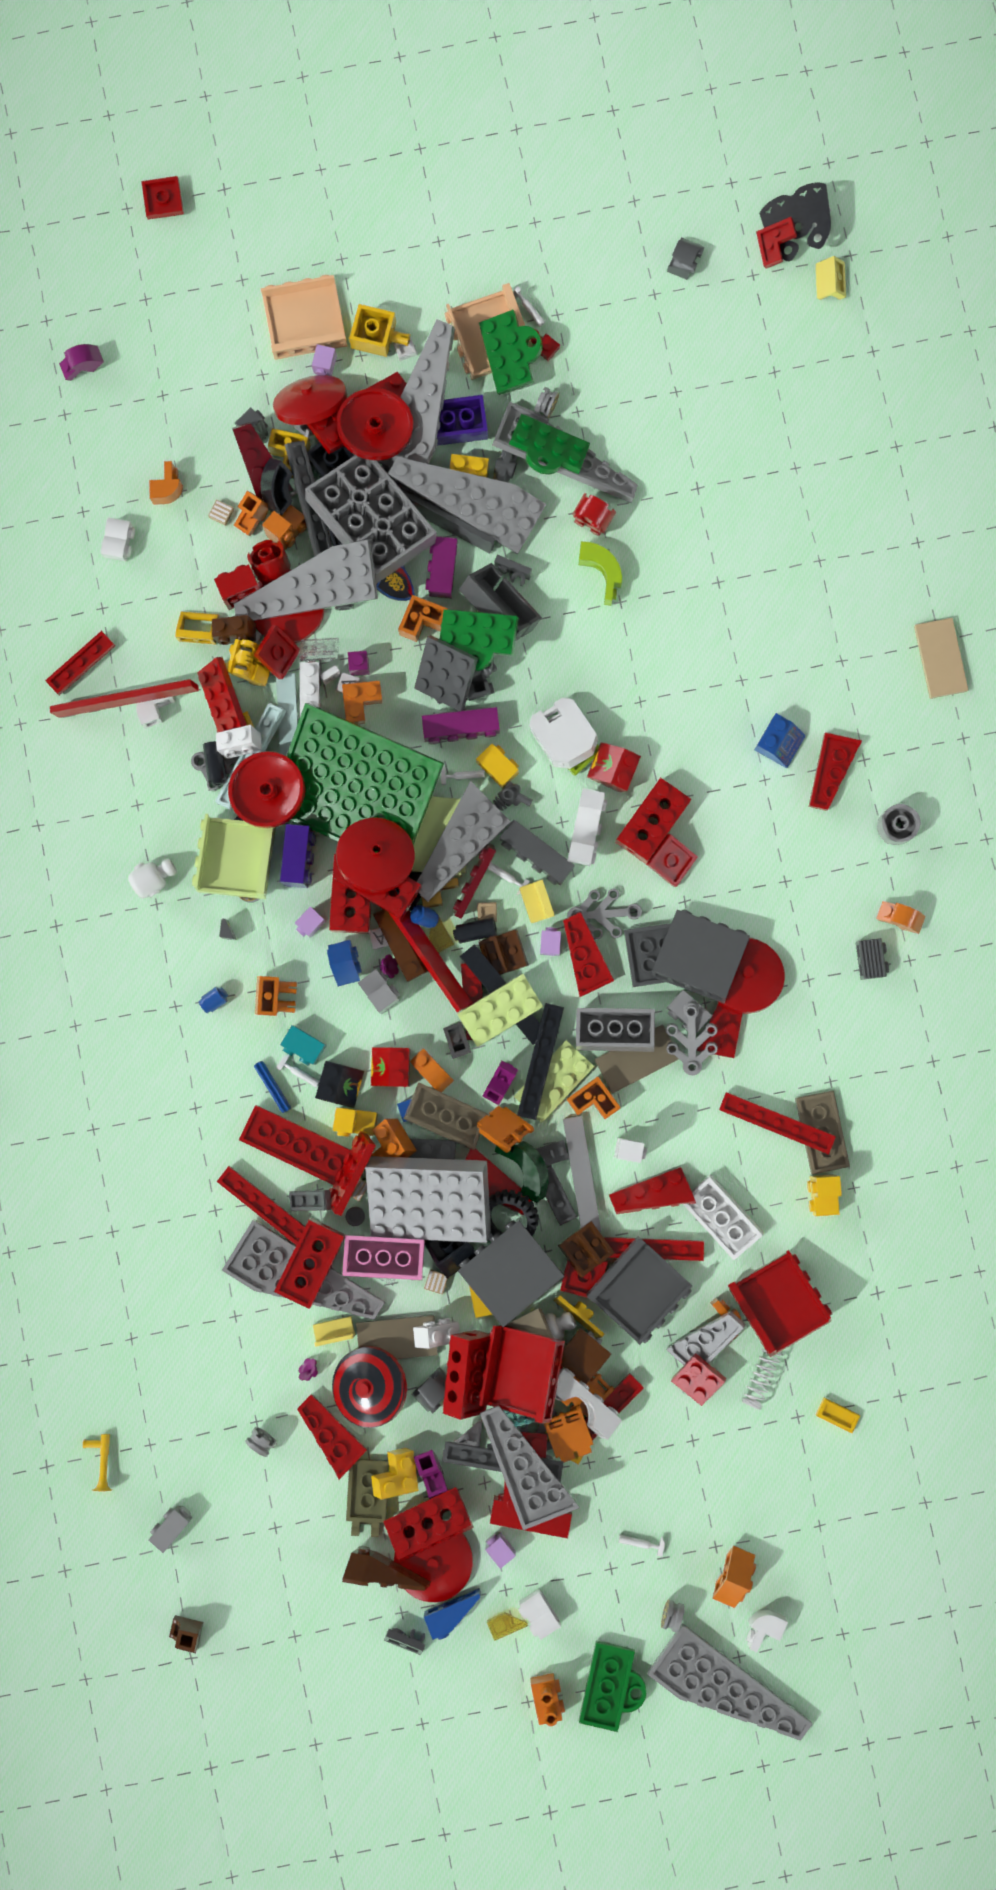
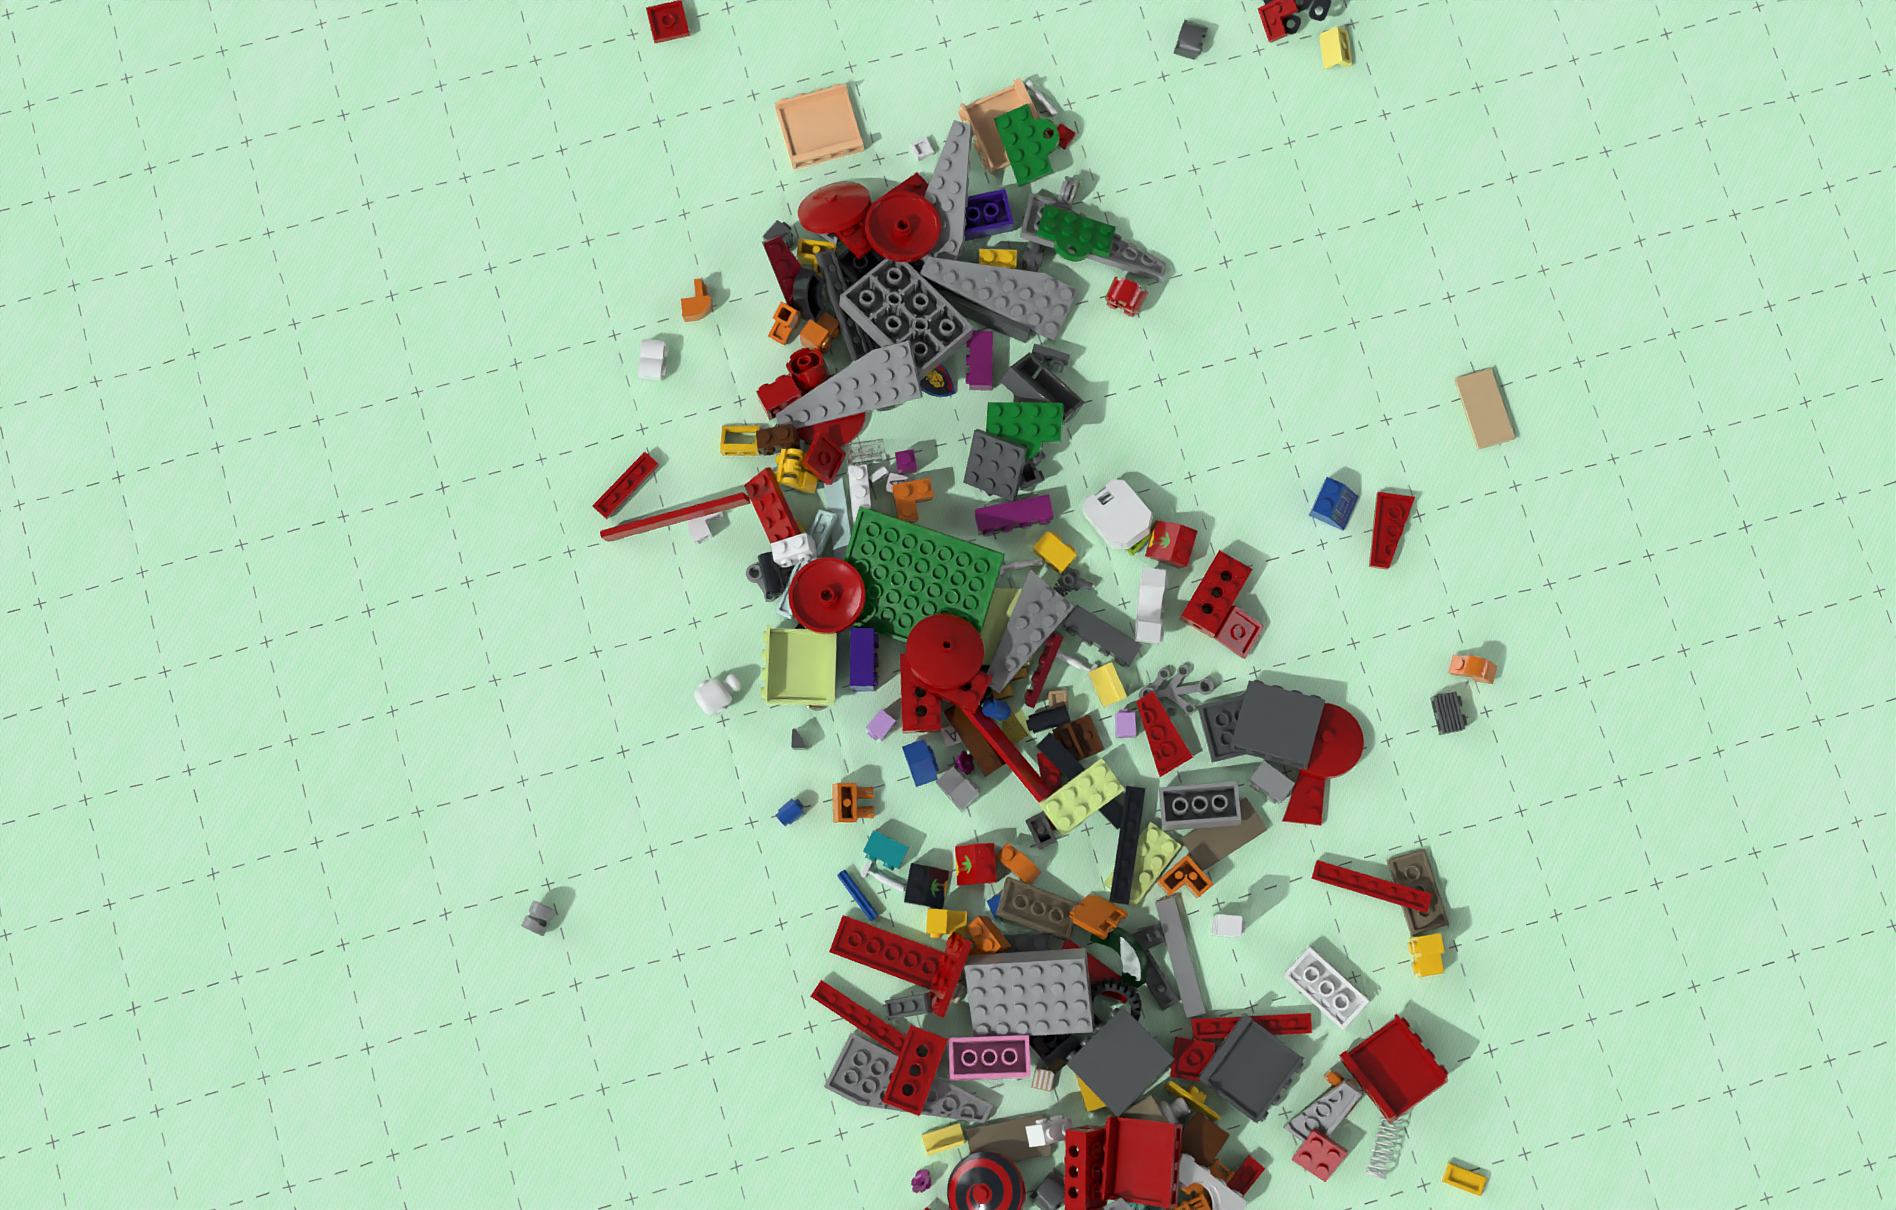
camera: 10 degrees left, 5 degrees down
(80, 358) = (600, 185): magenta brick -> none
(221, 512) = (753, 324): tan tile -> none
(324, 360) = (843, 167): lavender brick -> none
(355, 1216) = (954, 1020): dark grey tile -> none
(384, 333) = (896, 144): yellow brick -> none
(420, 613) = (962, 408): orange brick -> none
(500, 1082) = (1089, 870): magenta brick -> none
(586, 1249) = (1192, 1031): reddish brown slope -> none
(604, 561) = (1136, 338): lime arch -> none
(660, 1191) = (1261, 966): red wing -> none
(691, 1042) = (1277, 811): light grey plant -> none
(901, 814) = (1463, 567): light grey brick -> none

